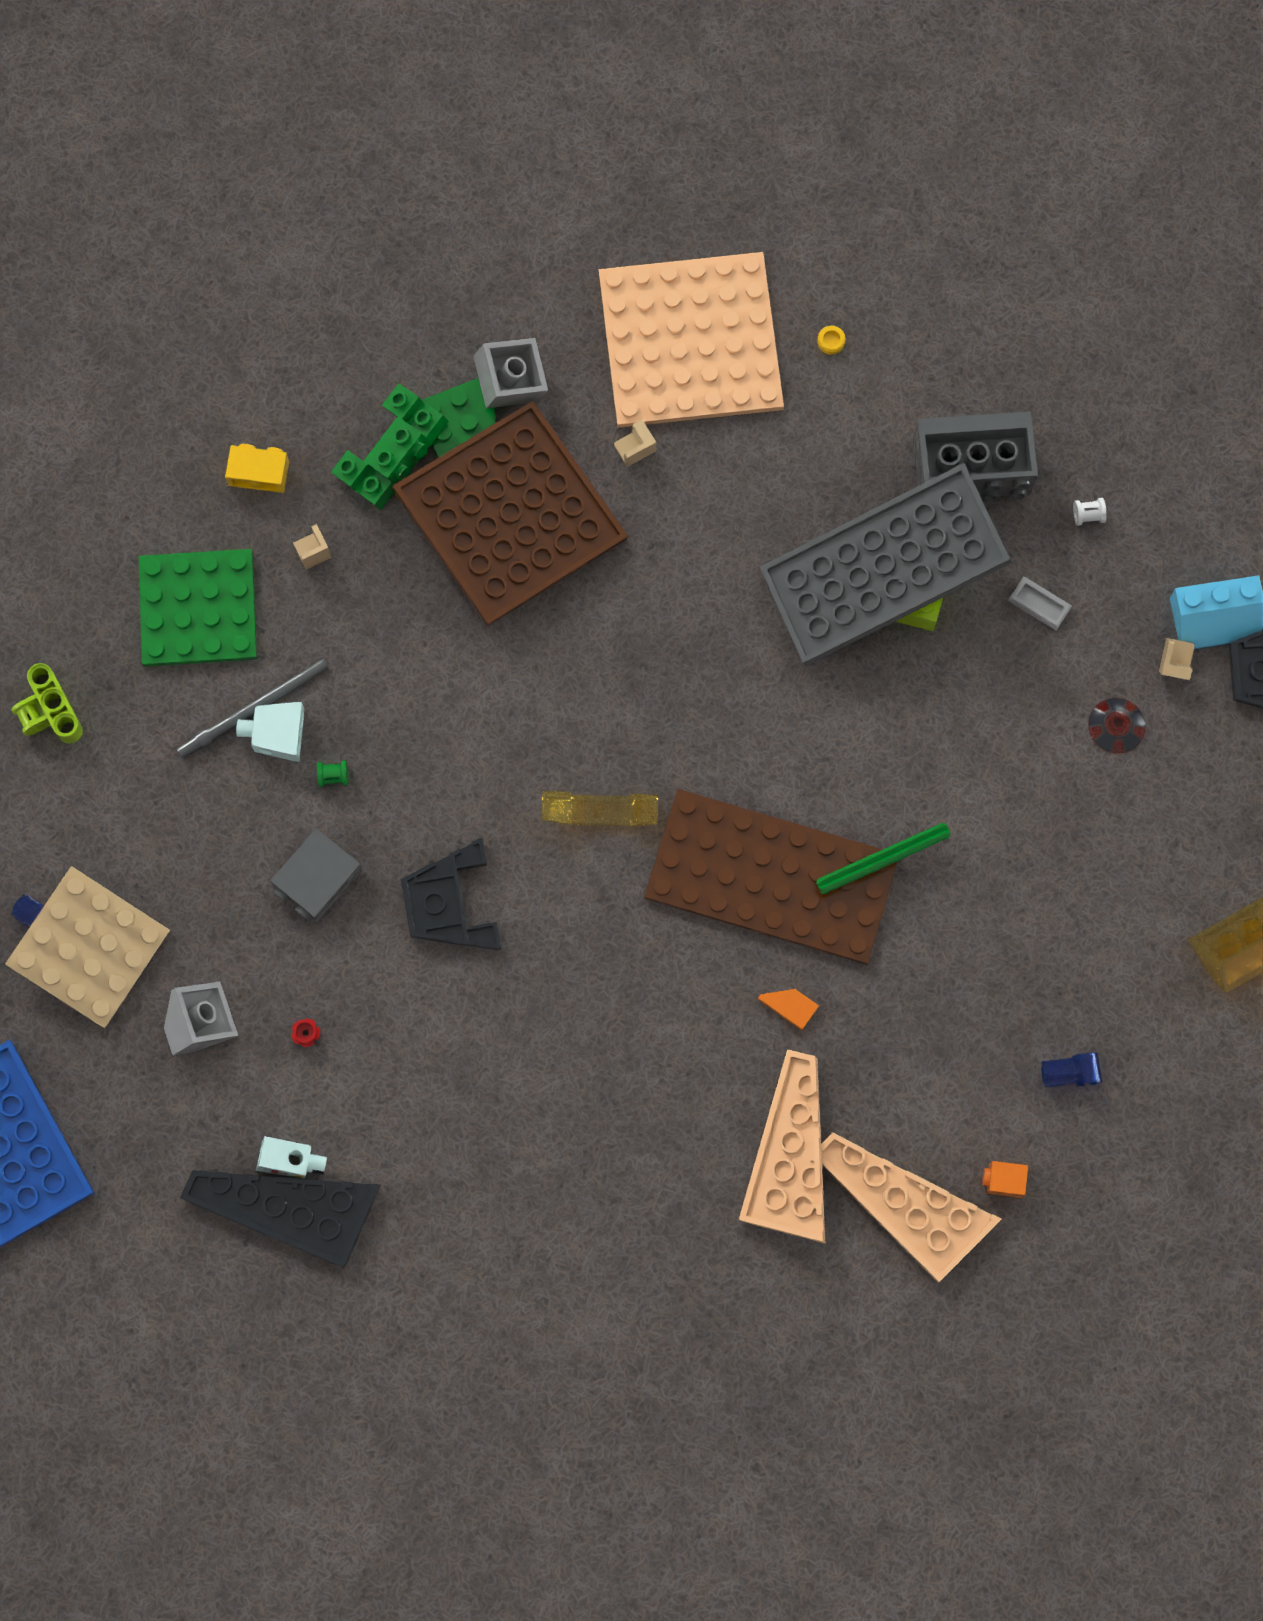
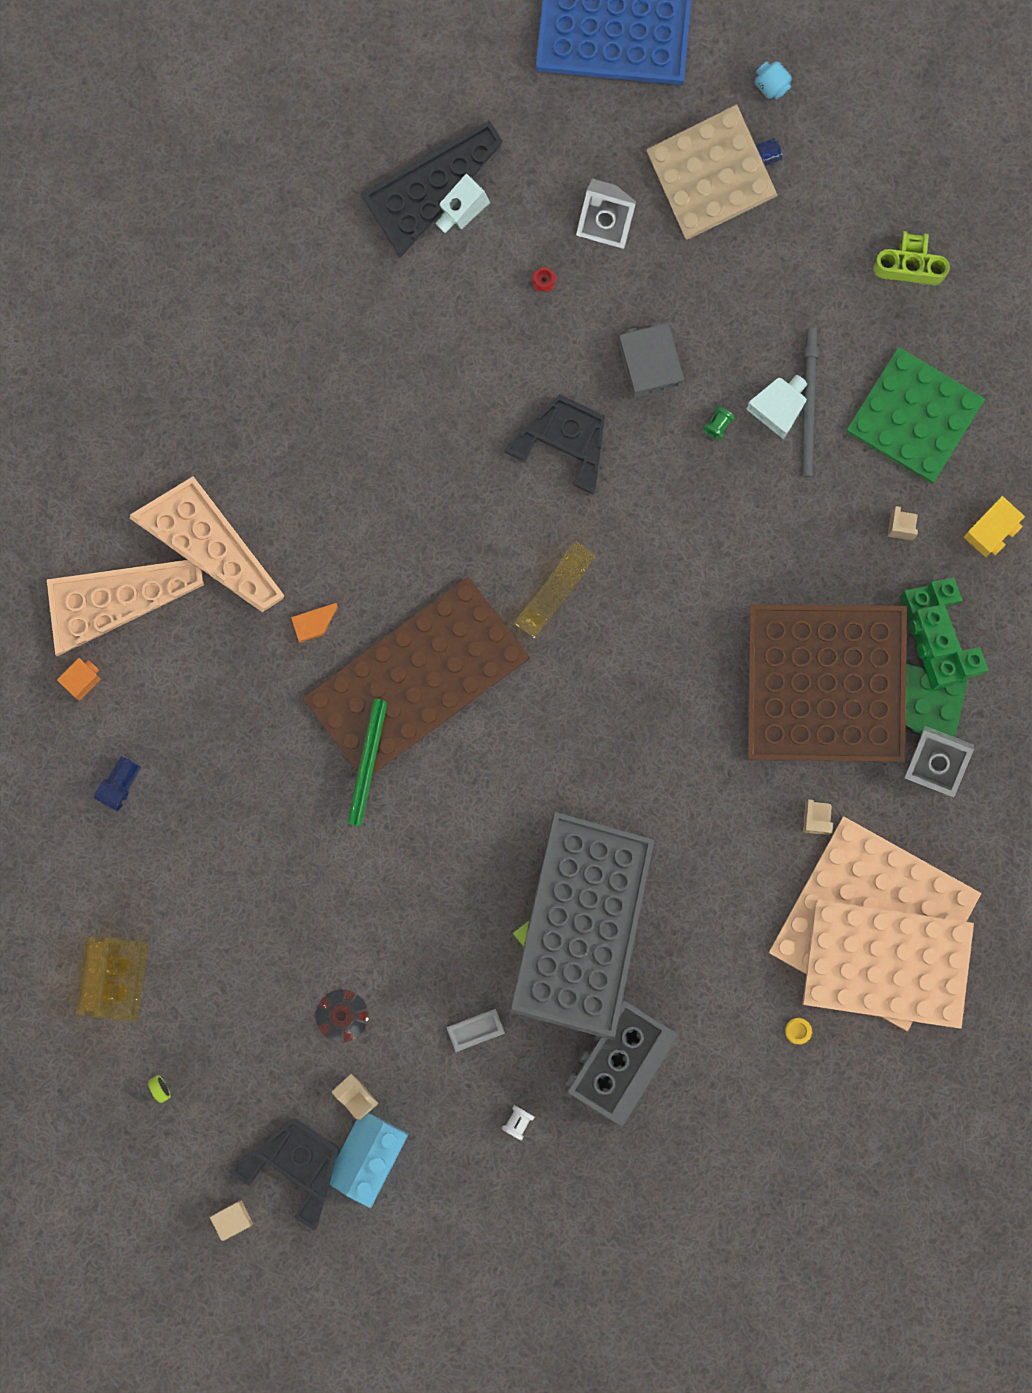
camera: 125 degrees right, 5 degrees up
(720, 301) = (888, 964): none -> light nougat plate

